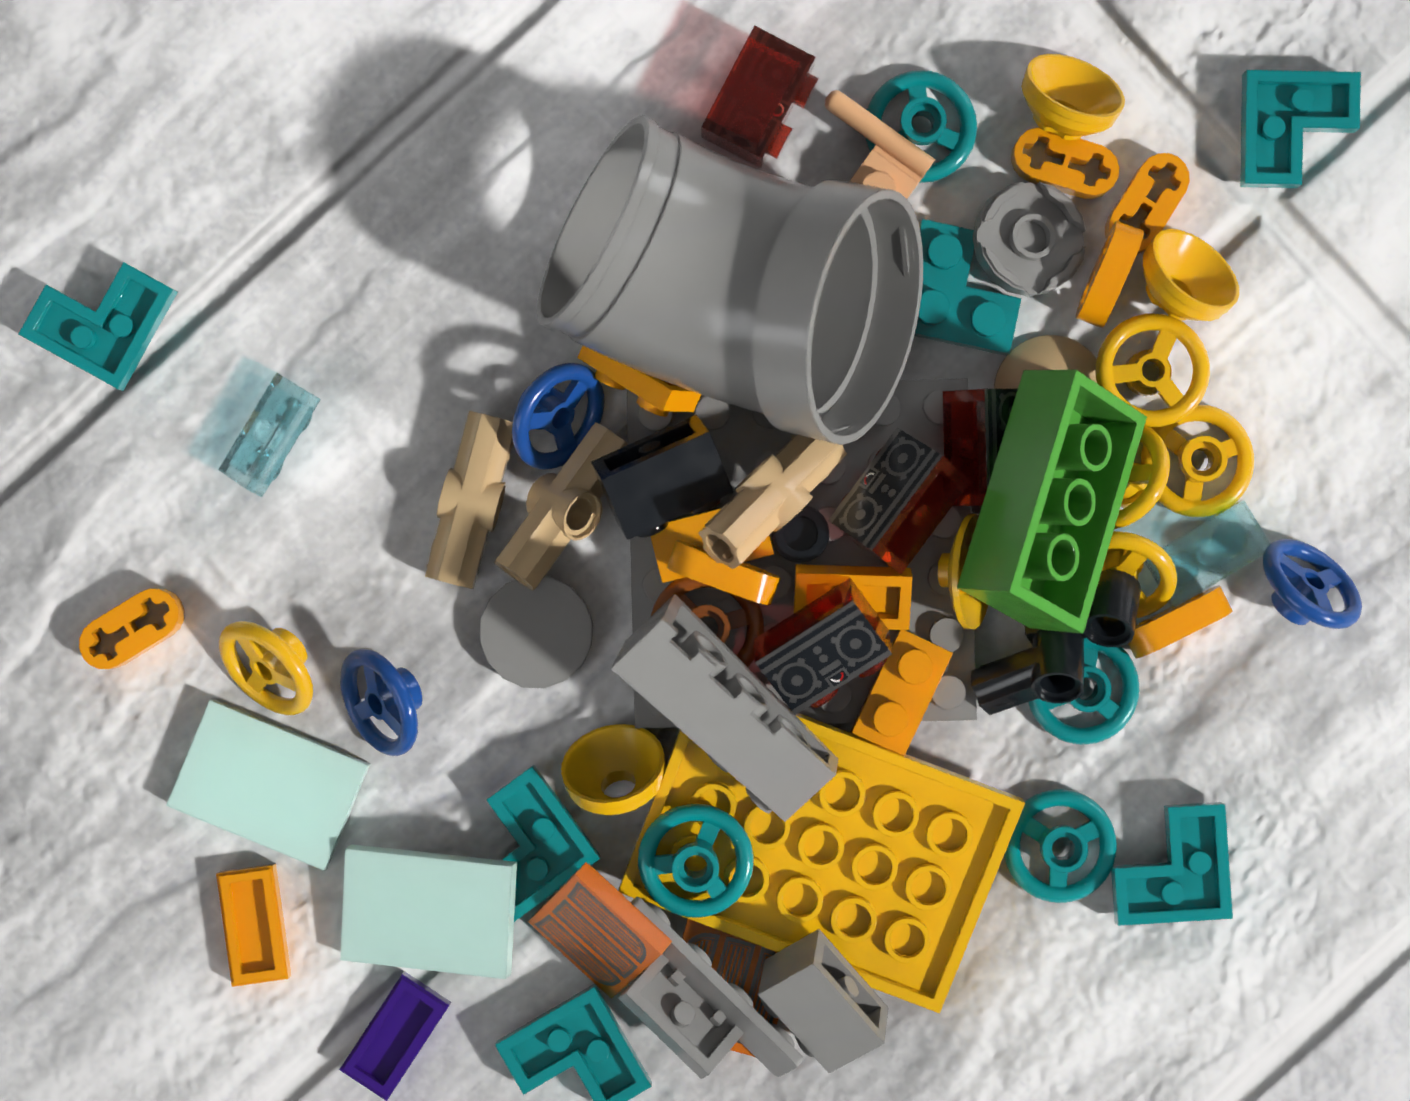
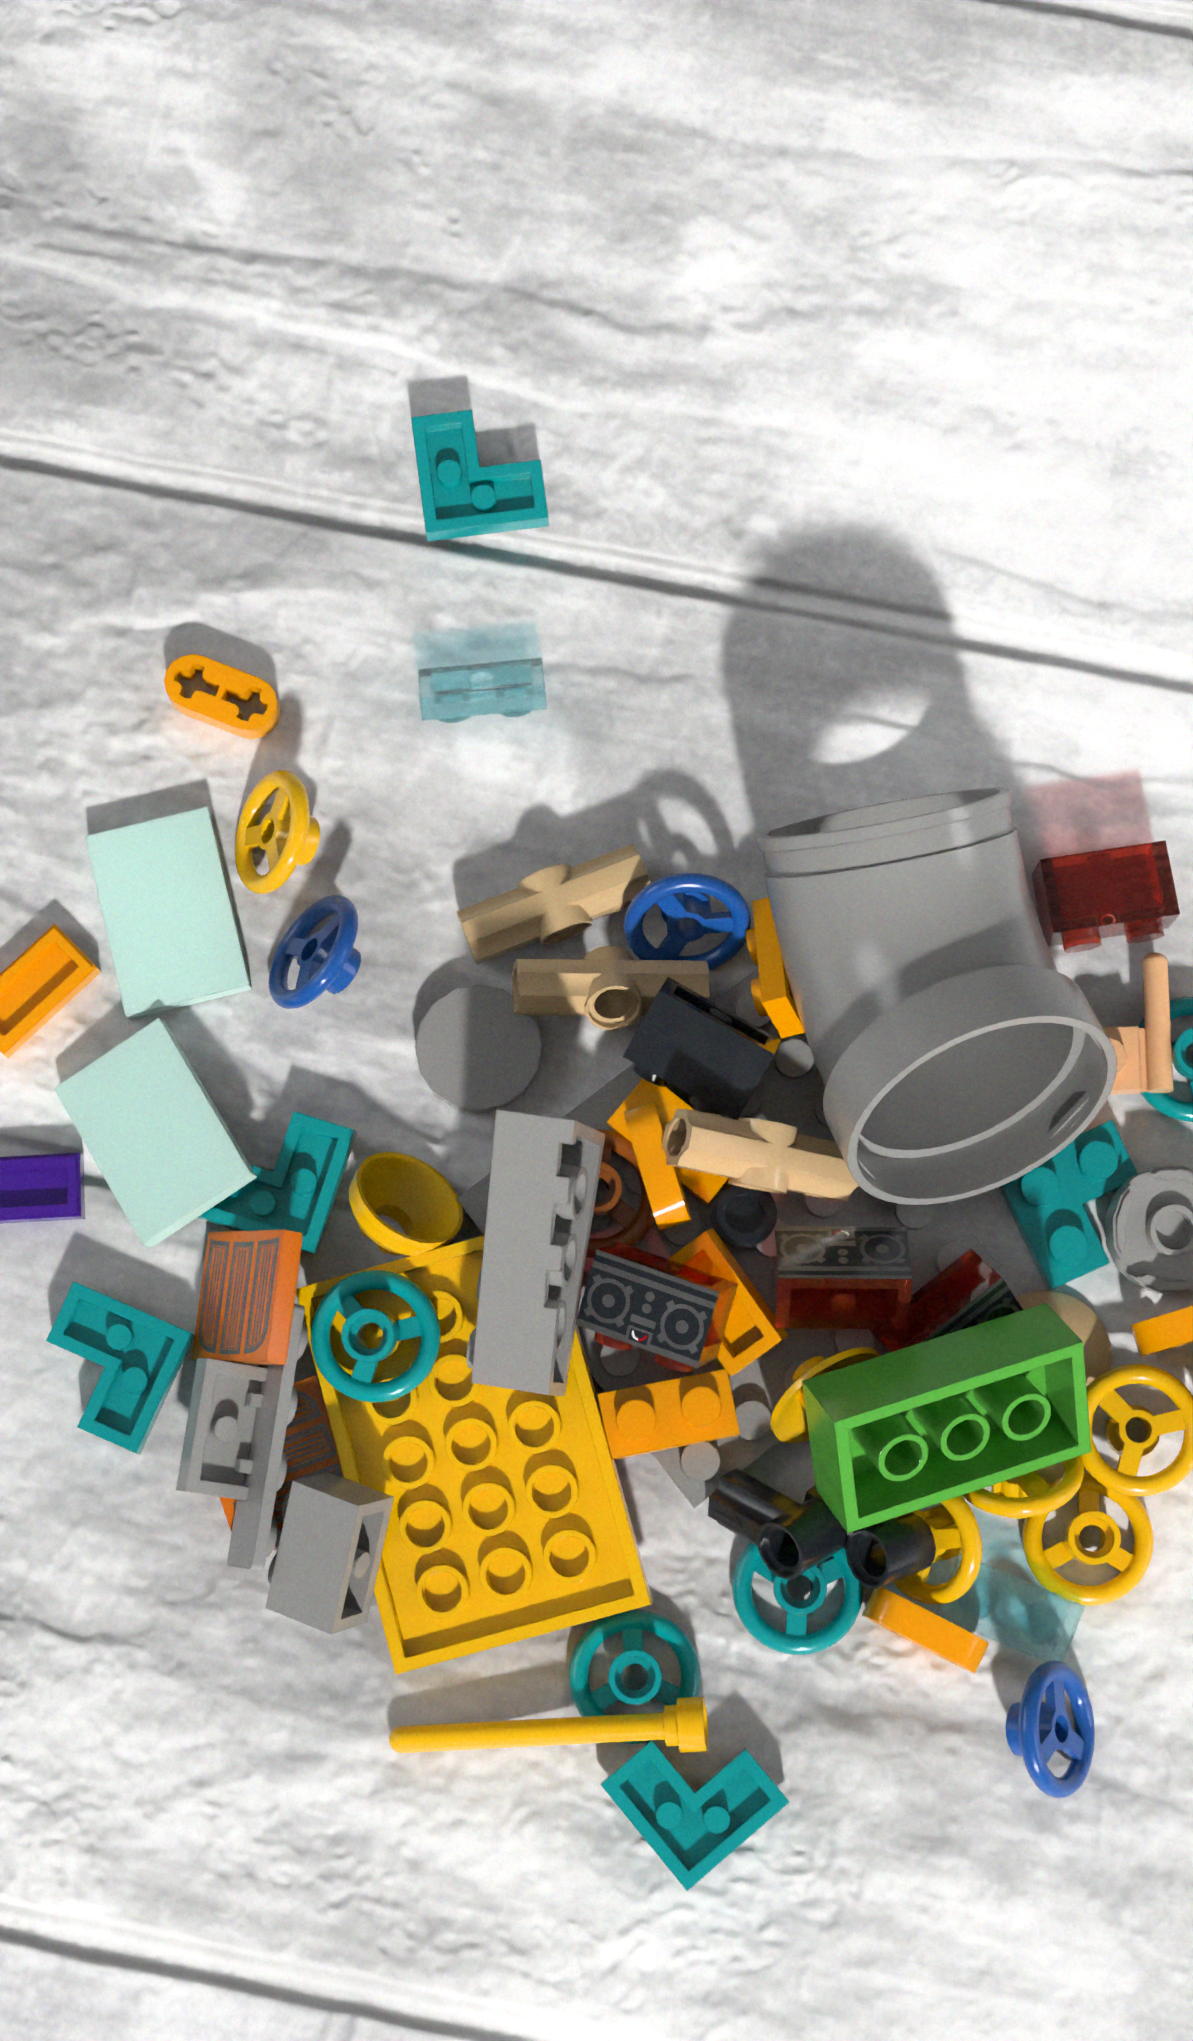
camera: 55 degrees right, 10 degrees down
(1118, 842) = (678, 1725): none -> yellow piece

